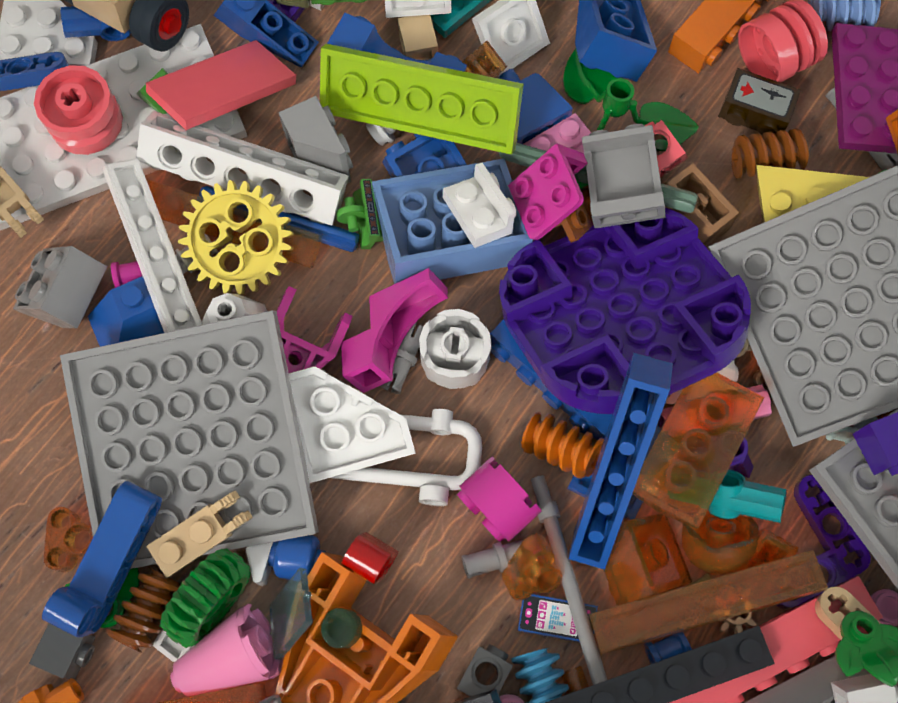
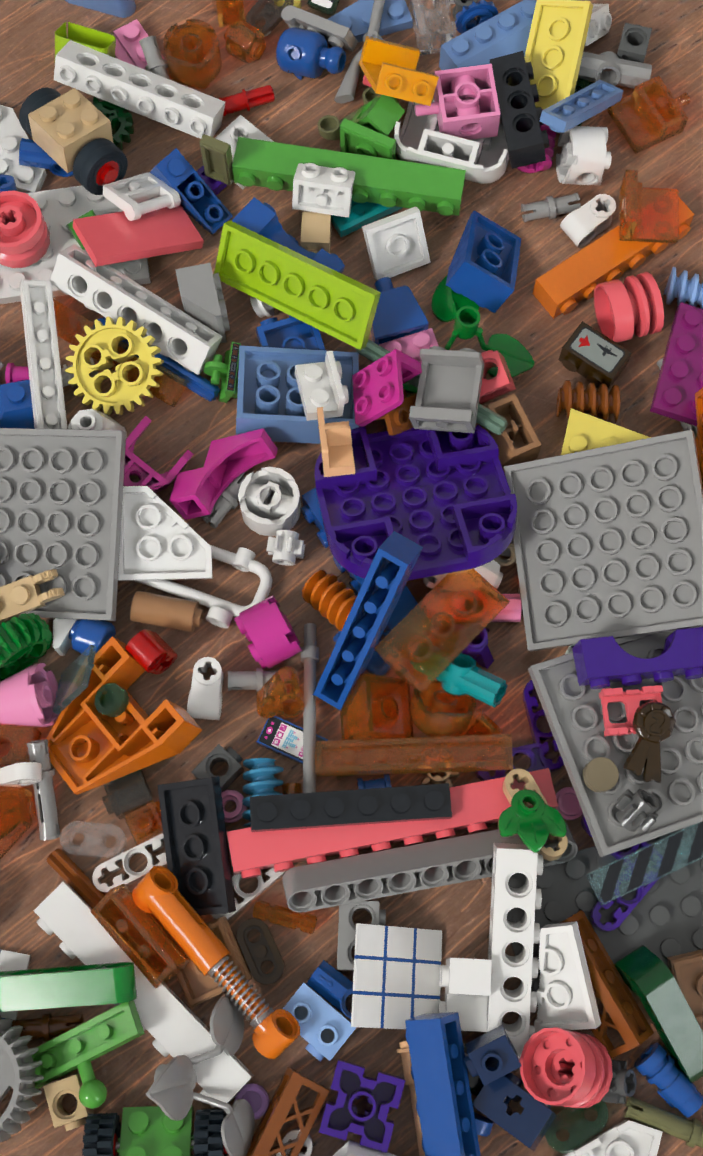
camera: 15 degrees right, 0 degrees up
(213, 31) = (139, 188): none -> white plate
(371, 504) = (166, 611): none -> medium nougat brick
(444, 592) = (206, 695): none -> white piece
(484, 61) = (363, 267): clear orange brick -> none
(486, 396) = (285, 547): none -> white gear
(517, 269) = (335, 446): none -> light nougat panel

